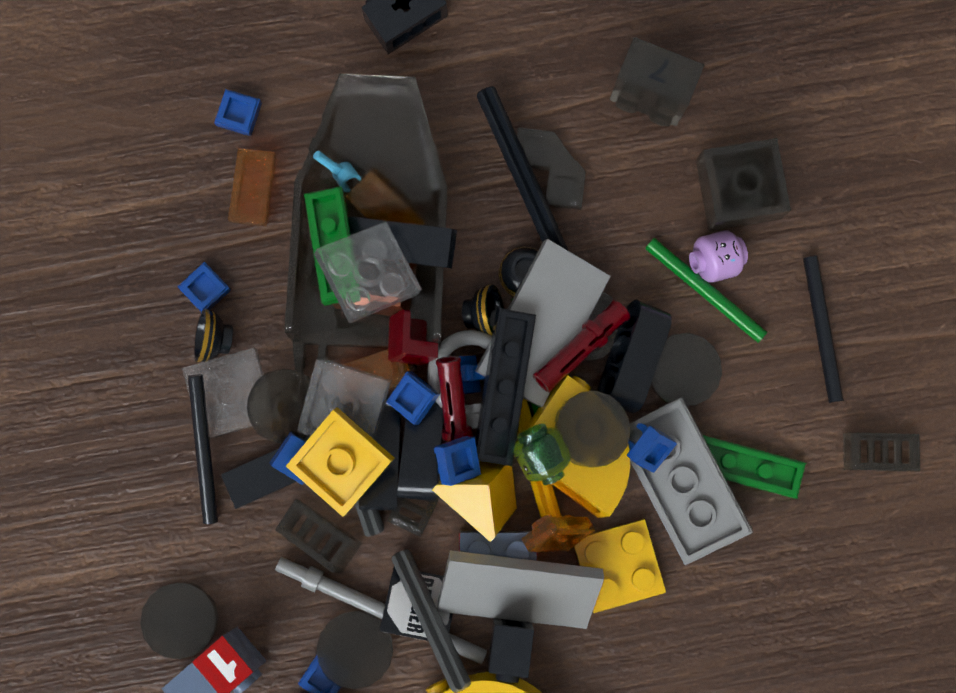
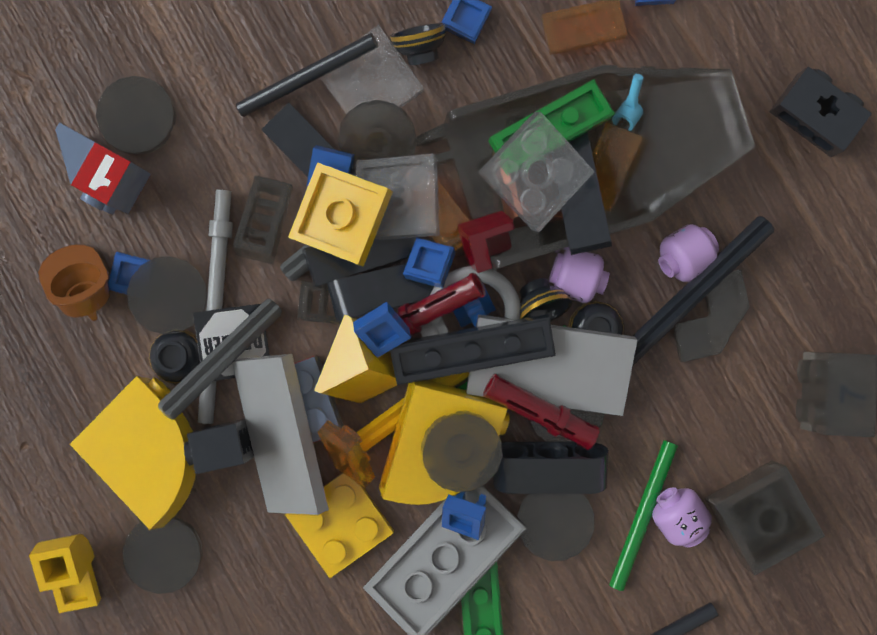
camera: 70 degrees right, 5 degrees up
(413, 663) = (174, 356): none -> black piece
(471, 269) = (579, 275): none -> lavender head
(486, 168) = (687, 252): none -> lavender head
(542, 454) = (417, 411): clear green head -> none

